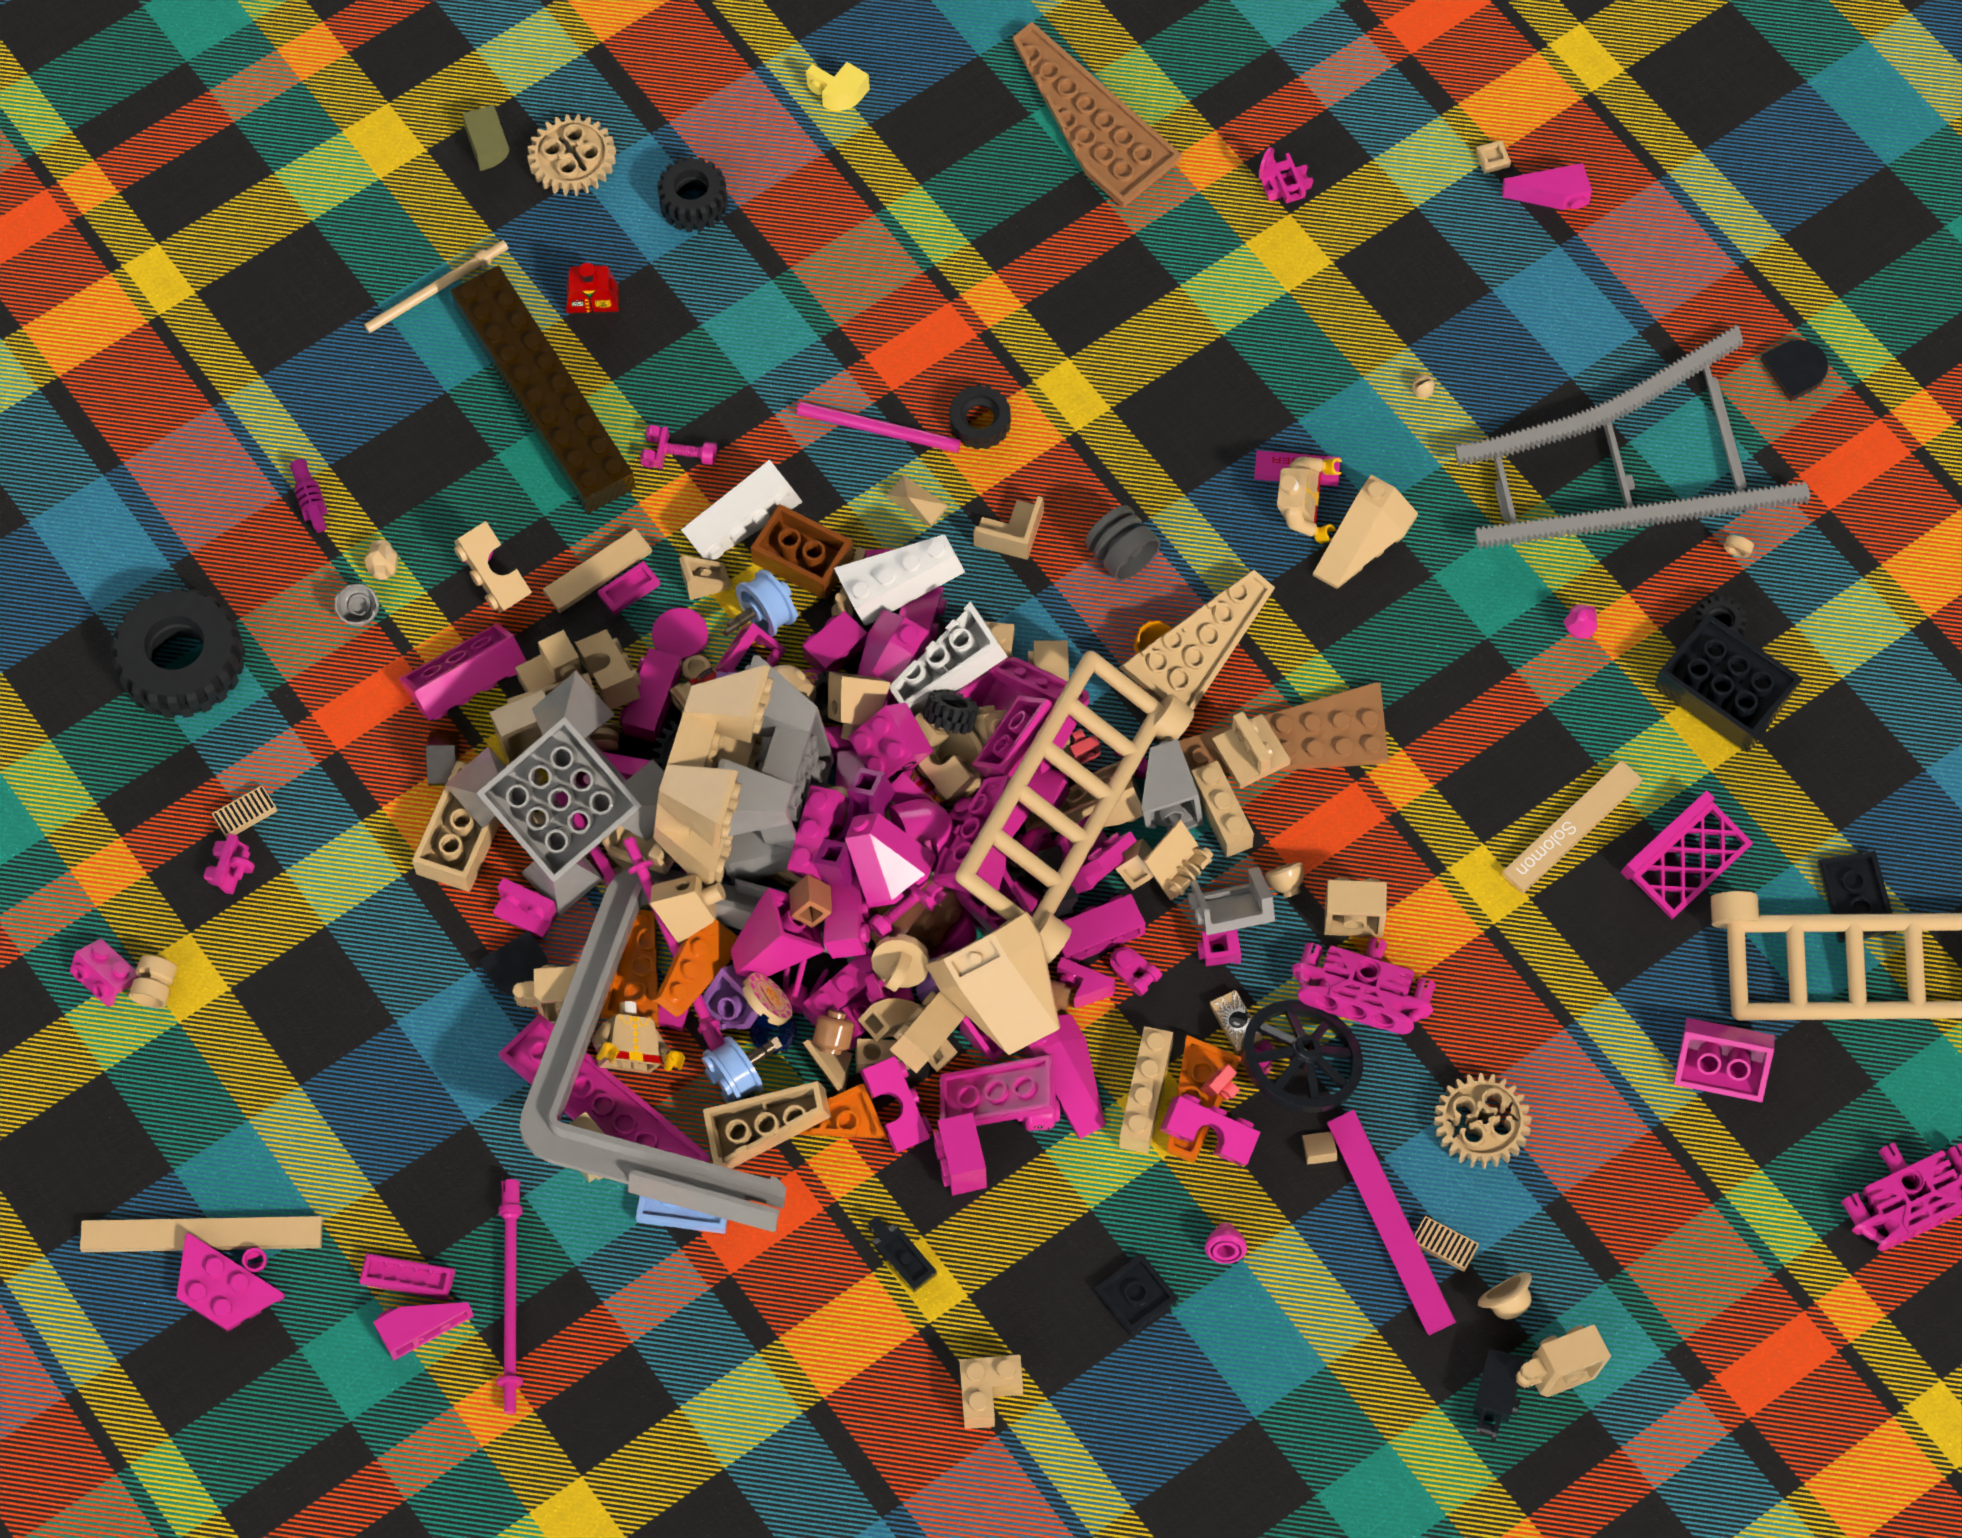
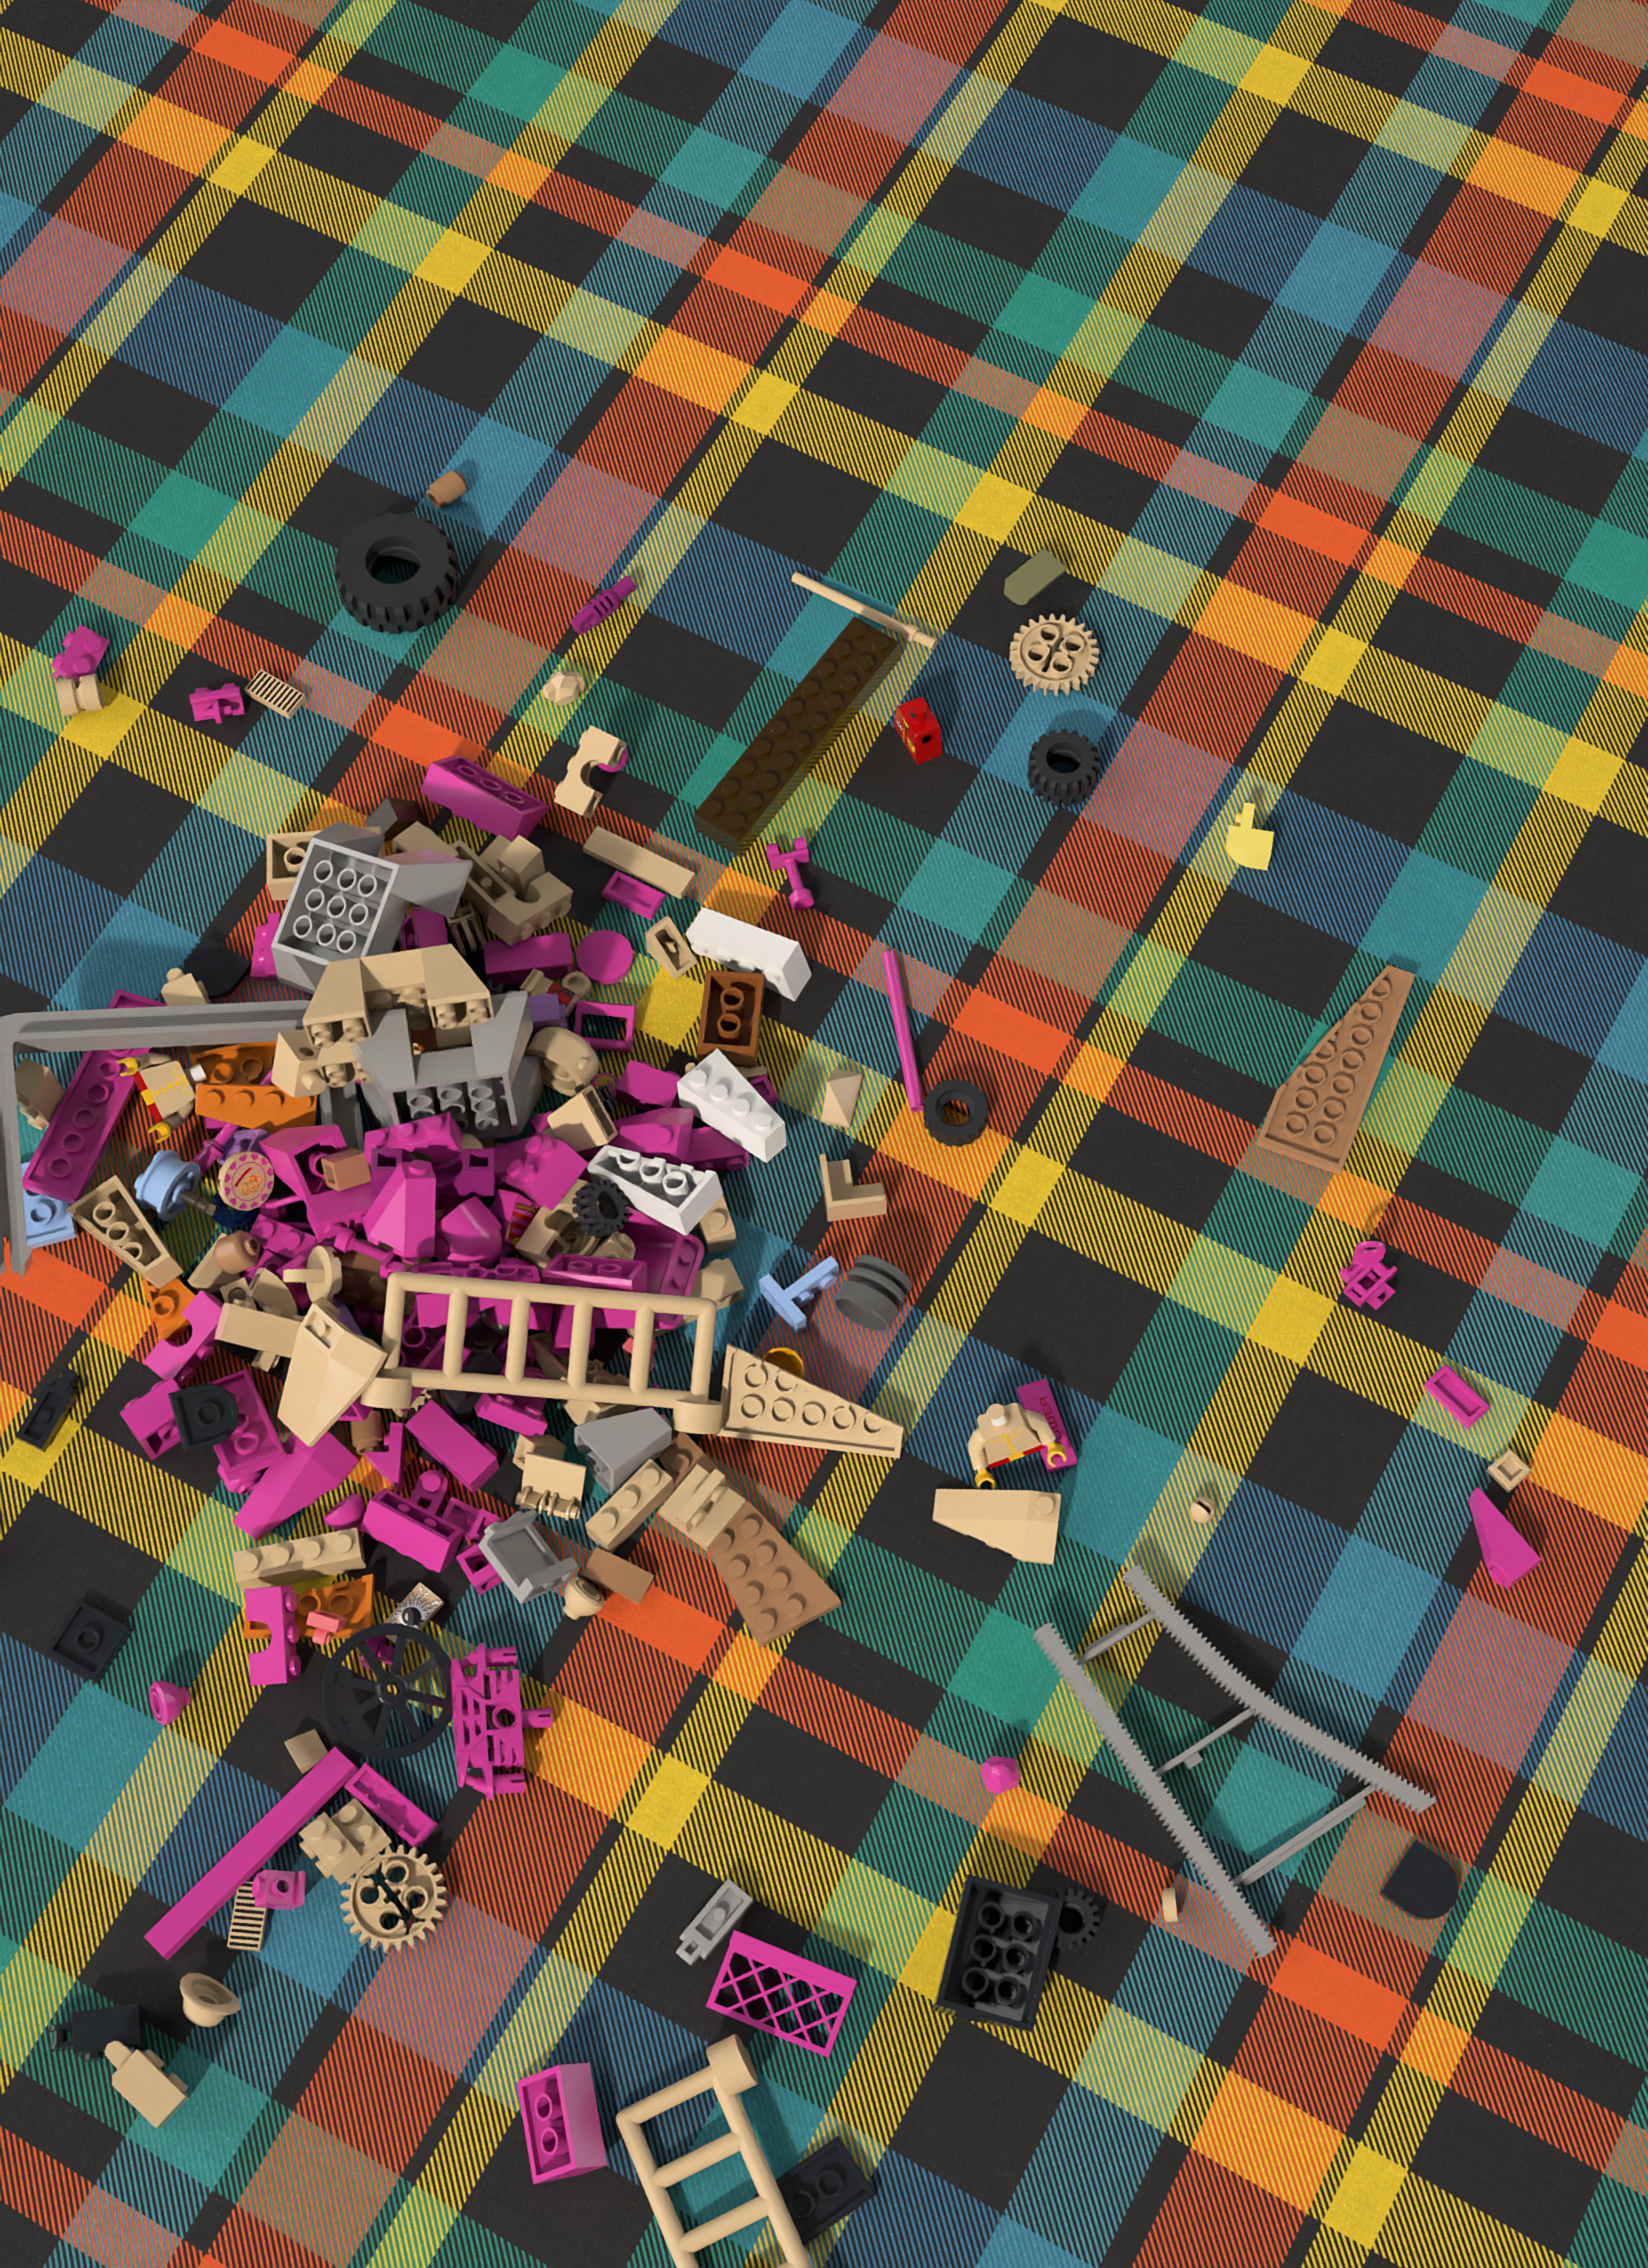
camera: 65 degrees right, 0 degrees up
(102, 579) = (446, 489): none -> medium nougat brick
(356, 605) = (508, 686): light grey hair -> none
(764, 603) = (657, 1008): light blue wheel -> none
(987, 1107) = (203, 1415): none -> black tile
(1093, 615) = (799, 1293): none -> light blue bracket
(1120, 1037) = (346, 1513): none -> dark pink brick
(1163, 987) = (411, 1530): none -> dark pink brick
(1174, 943) = (469, 1519): none -> dark pink slope
(1276, 844) = (617, 1574): none -> medium nougat slope
(1355, 907) = (571, 1681): tan brick -> none
(1399, 1096) = (391, 1806): none -> dark pink plate
(1414, 164) = (1456, 1396): none -> dark pink tile
(1416, 1139) = (343, 1841): none -> tan plate
(1437, 1205) = (290, 1894): none -> dark pink brick
(1571, 827) = (766, 1860): tan tile -> none
(1608, 883) = (713, 1922): none -> light grey hinge

